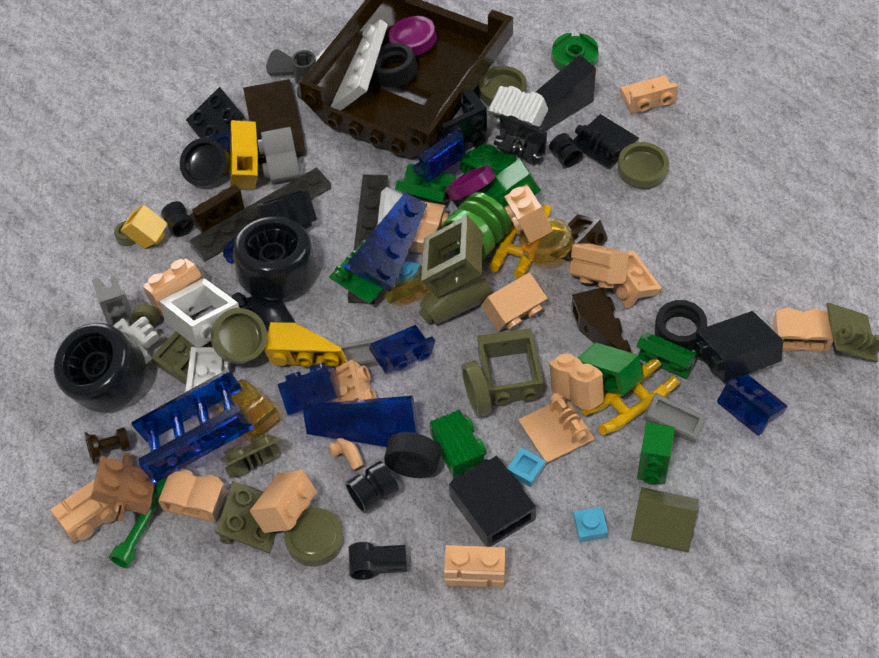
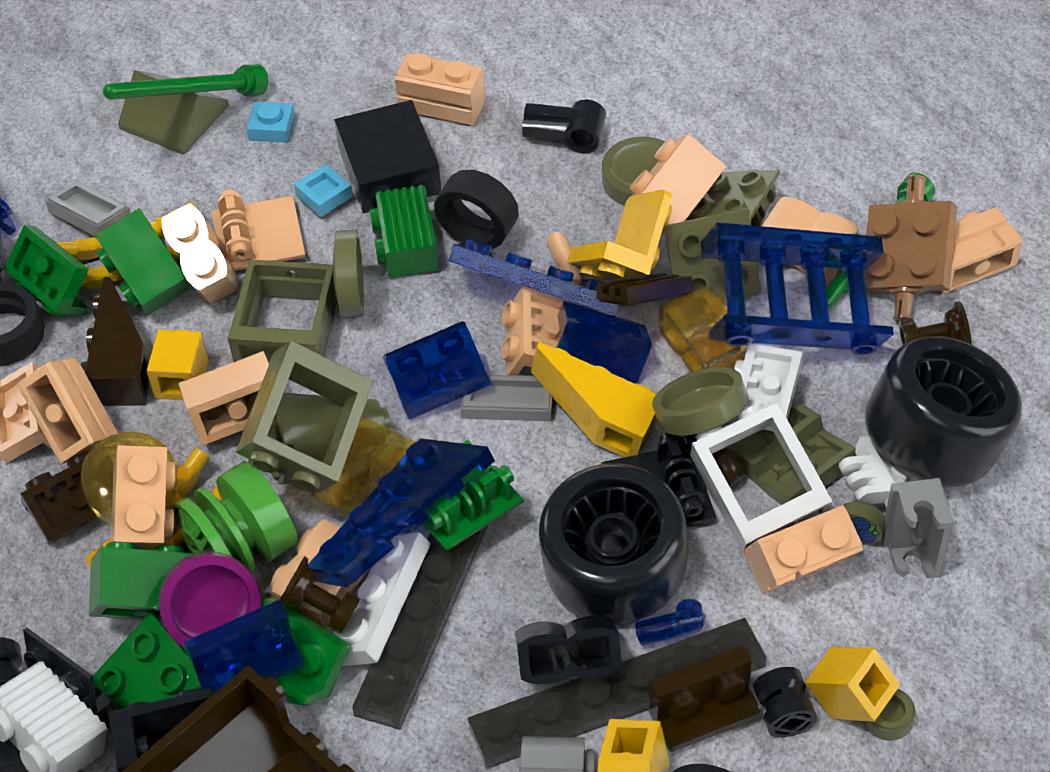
camera: 165 degrees left, 5 degrees down
(273, 429) = (644, 289): none -> dark brown tile
(305, 433) = (636, 241): none -> yellow bracket
(370, 488) = (559, 191): black wheel -> none
(425, 192) = (302, 589): none -> dark brown piece
(559, 322) = (175, 358): none -> yellow brick
(621, 545) = (247, 80): none -> green piece
(655, 453) = (144, 146): green brick -> none

